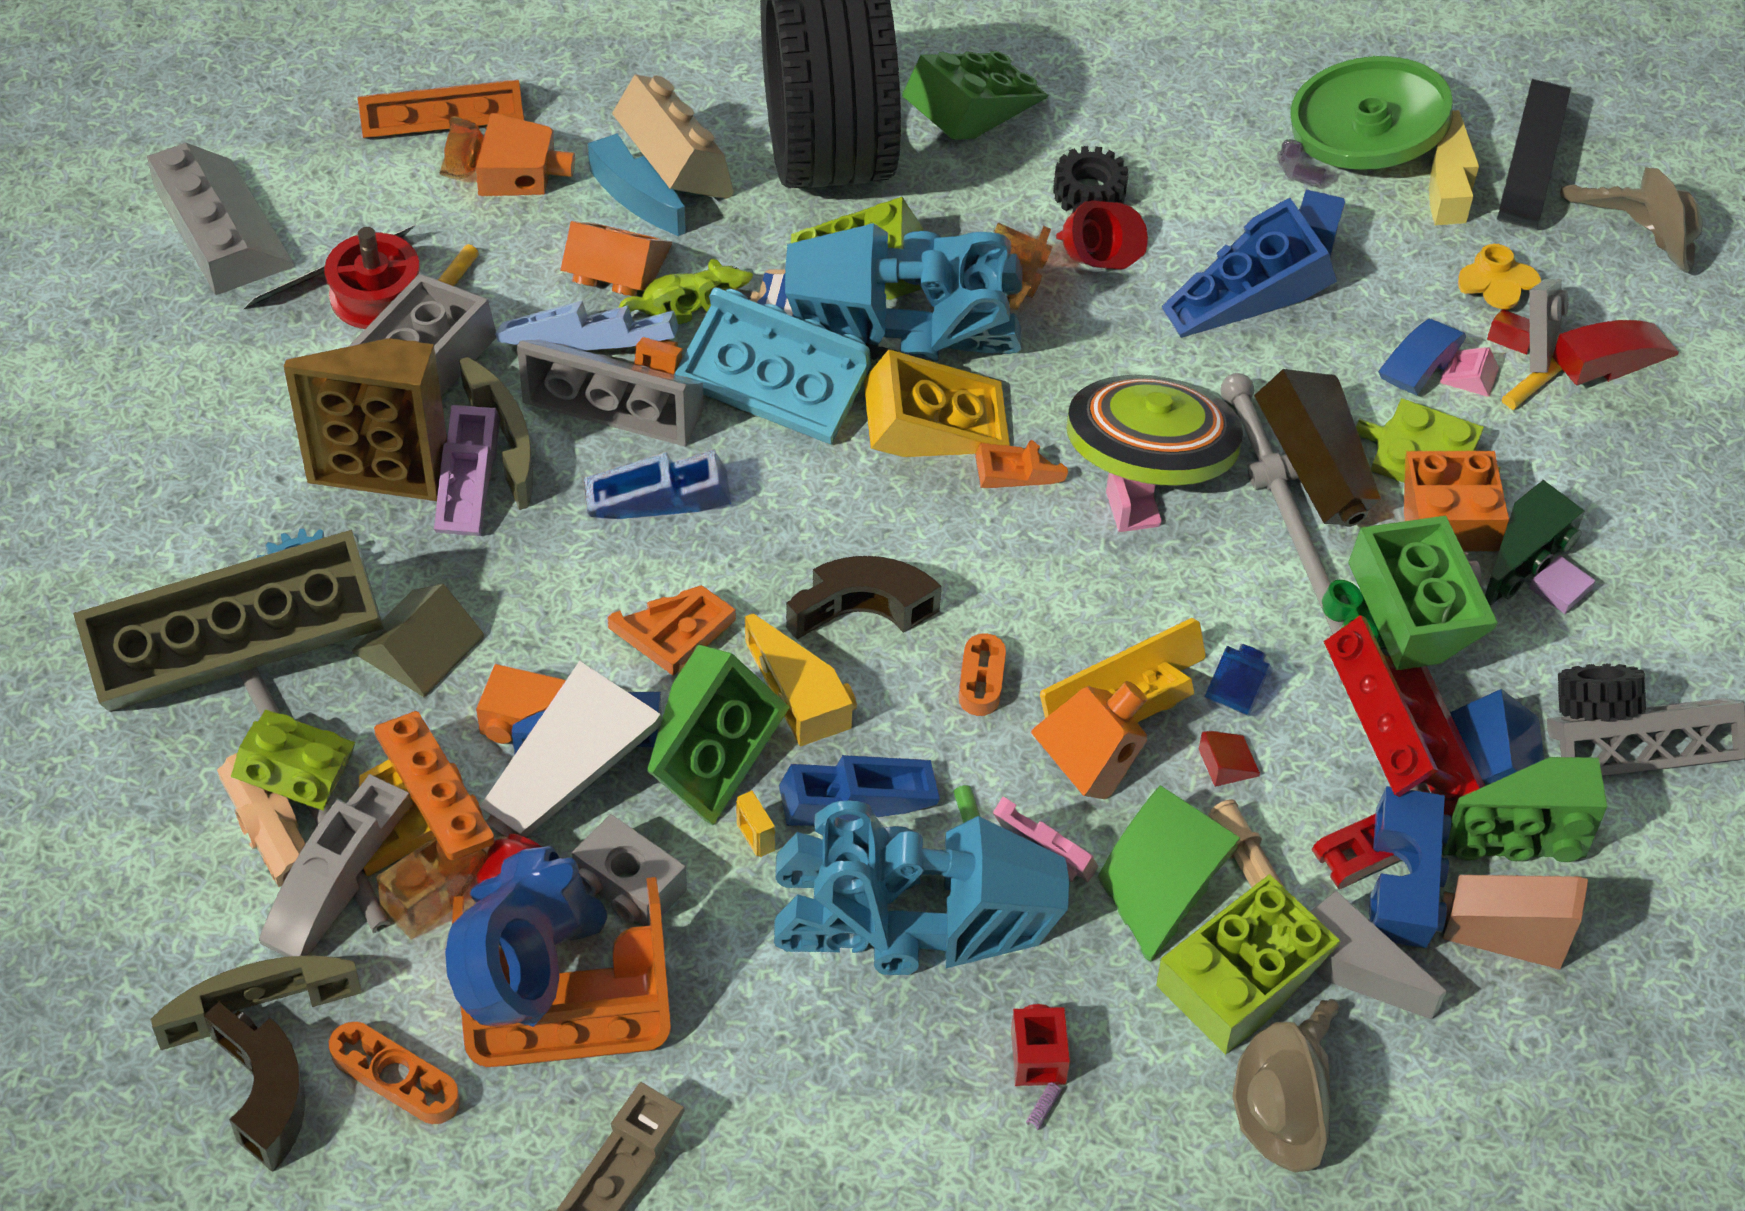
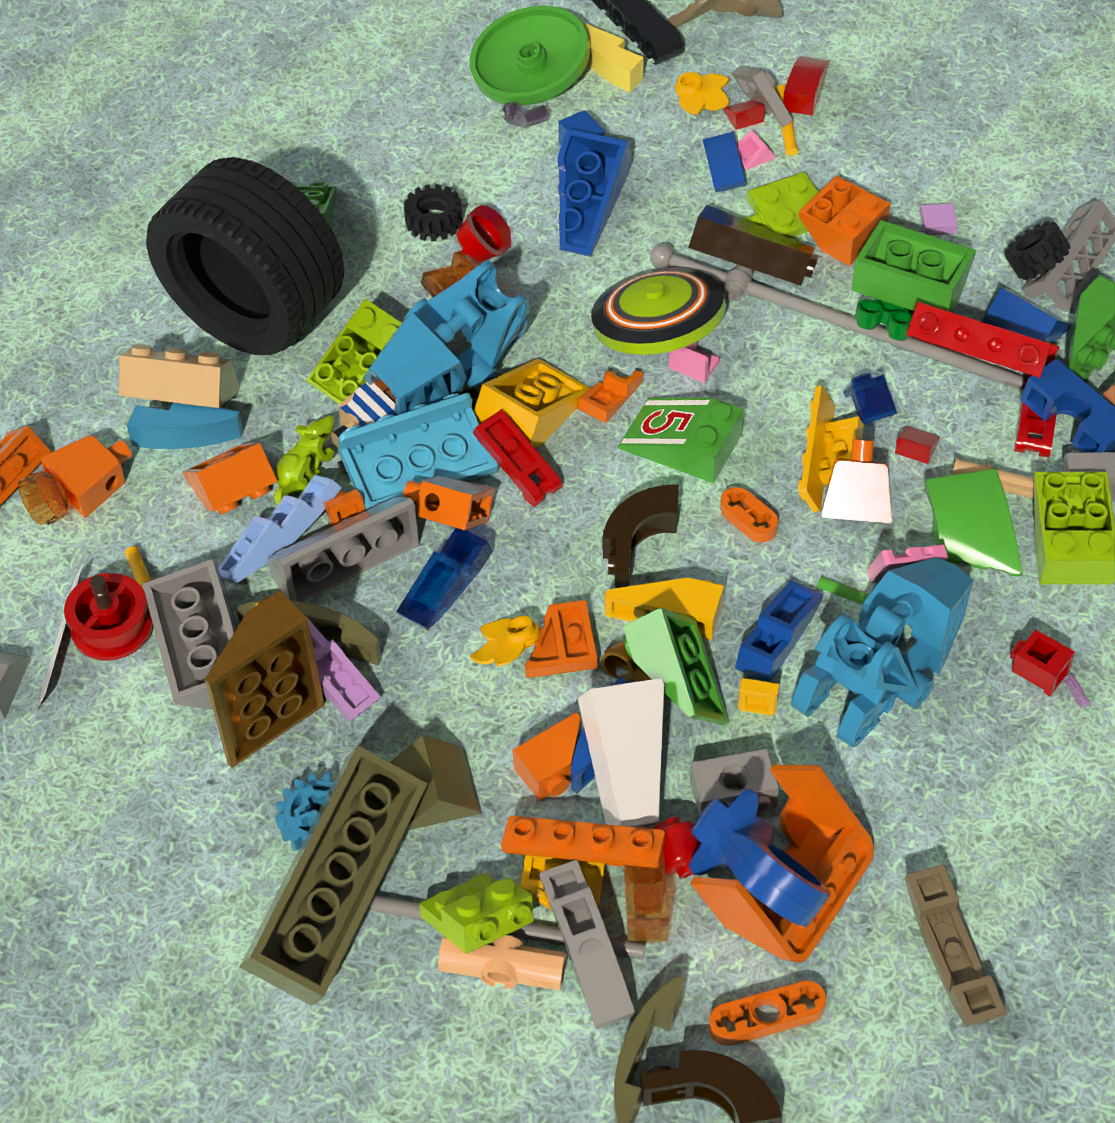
camera: 45 degrees left, 0 degrees up
(640, 581) = (506, 640): none -> yellow plate
(741, 430) = (451, 501): none -> orange torso
(849, 441) = (517, 457): none -> red plate
(1026, 559) = (686, 434): none -> bright green slope
(1536, 530) = (903, 195): dark green slope -> none

